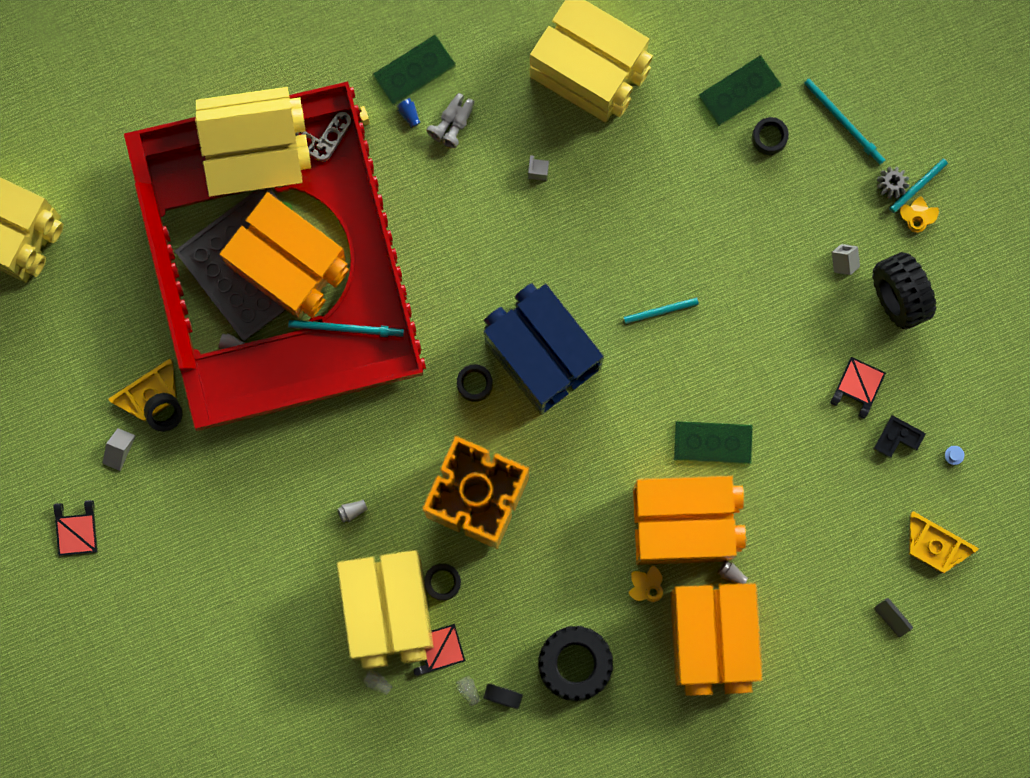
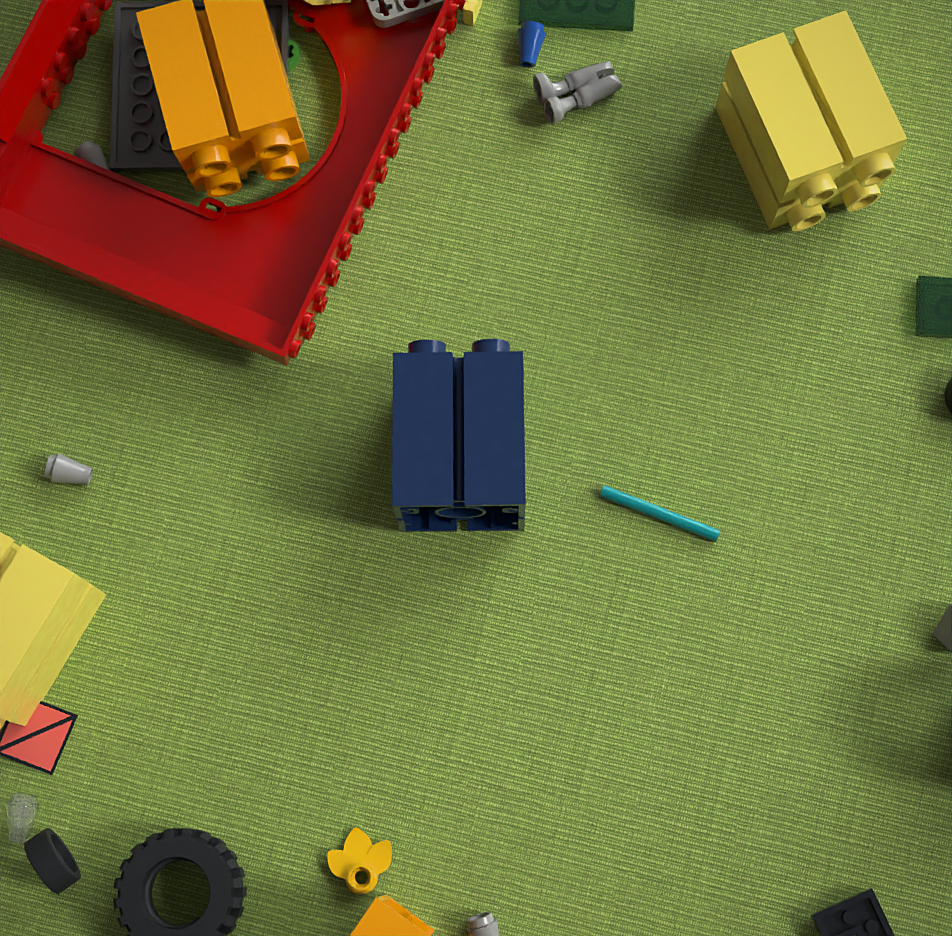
camera: 40 degrees right, 5 degrees down
(383, 331) = (283, 276): teal bar -> none
(442, 567) = (85, 632): black tyre -> none
(460, 383) = (336, 406): black tyre -> none
(476, 492) = (215, 560): light orange brick -> none
(538, 169) = (636, 221): light grey panel -> none
(687, 520) = (472, 815): light orange brick -> none
(713, 442) = (597, 737): clear green tile -> none
(859, 383) = (859, 811): coral flag -> none

